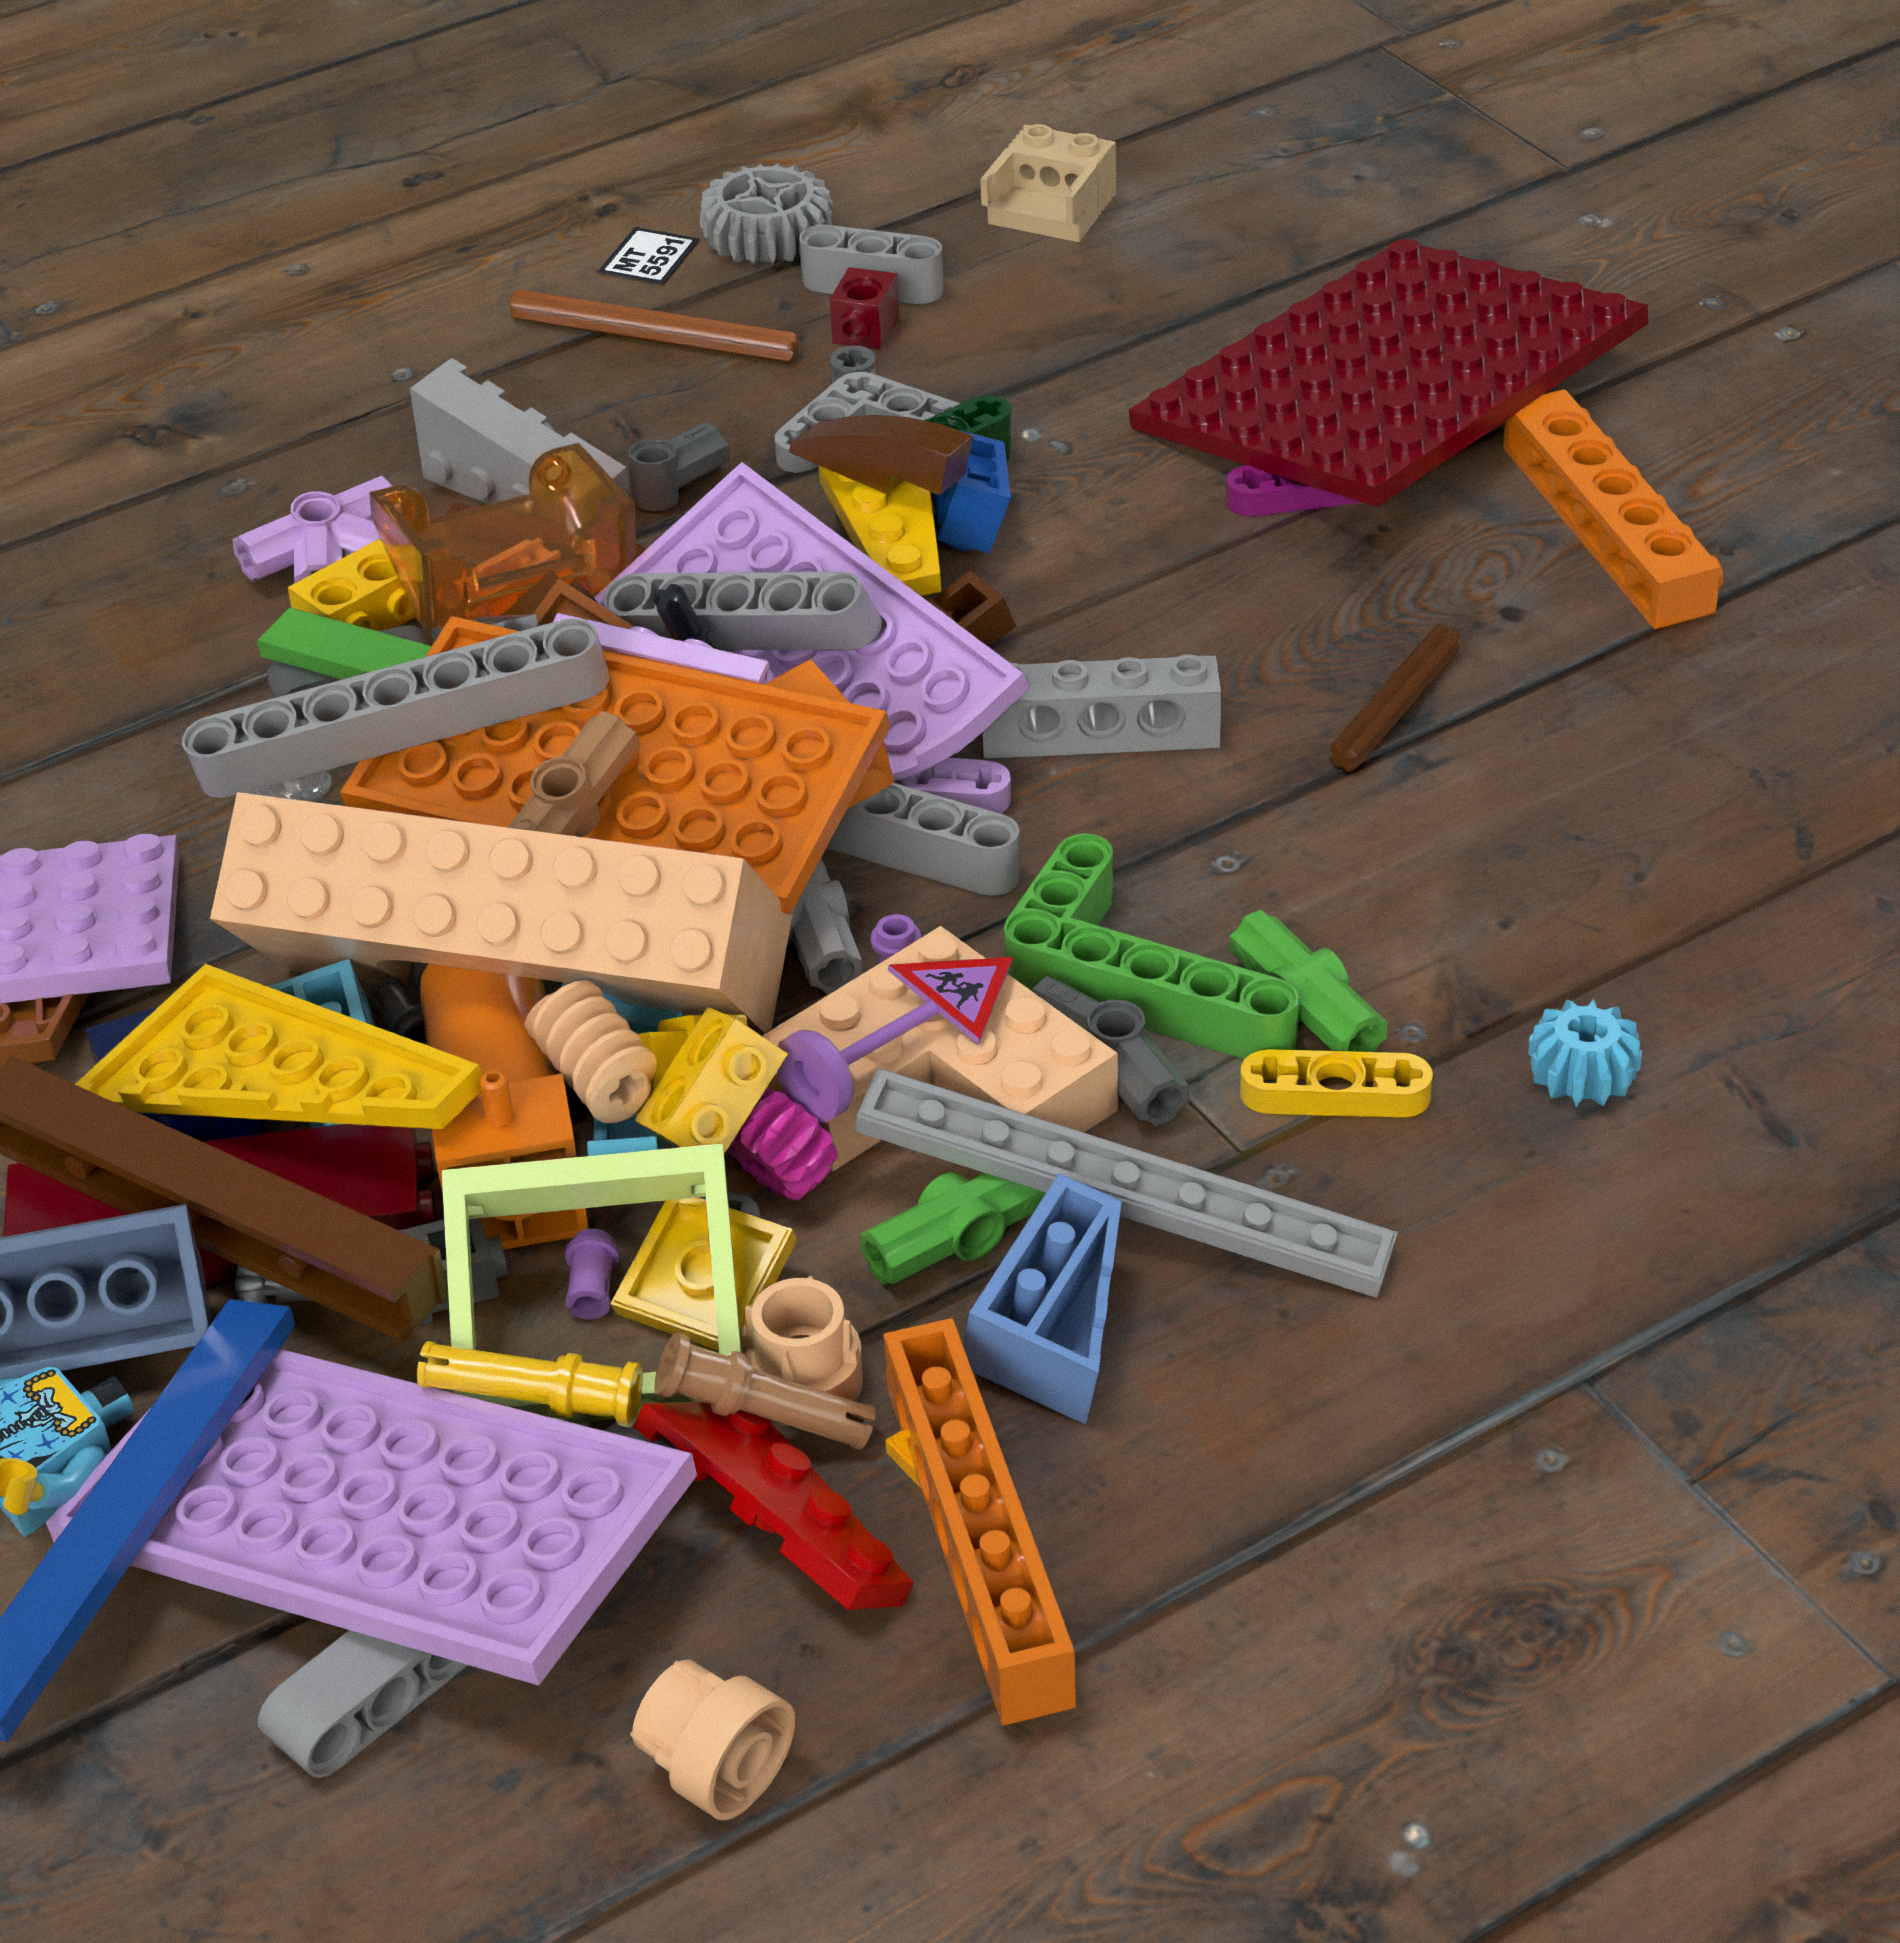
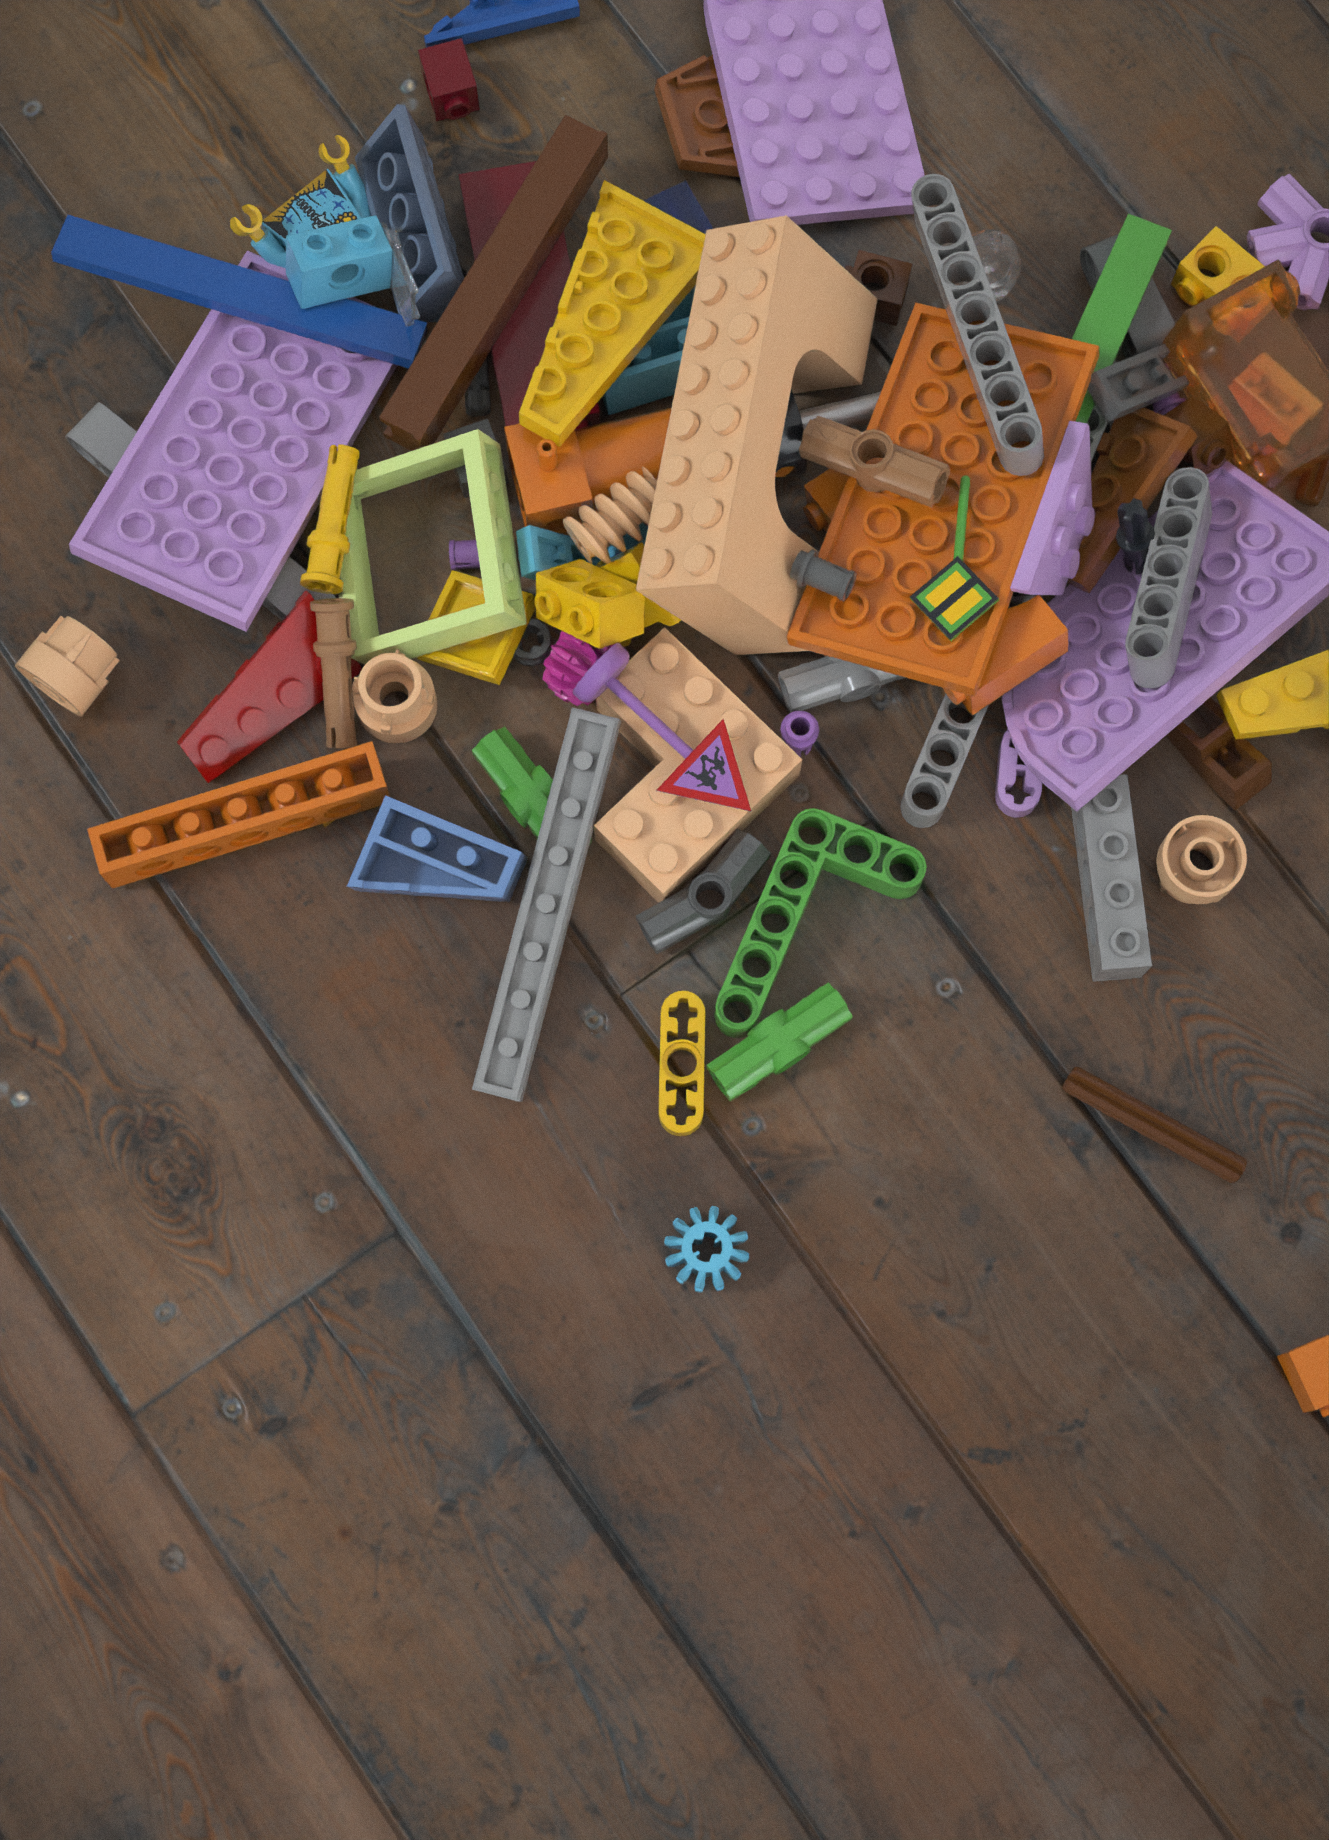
camera: 85 degrees right, 35 degrees up
(118, 1365) = (338, 261): none -> medium azure brick
(157, 1299) = (401, 278): none -> clear piece
(721, 834) = (822, 575): none -> dark grey pin
(756, 731) = (956, 593): none -> piece
(1086, 619) = (1218, 843): none -> light nougat piece

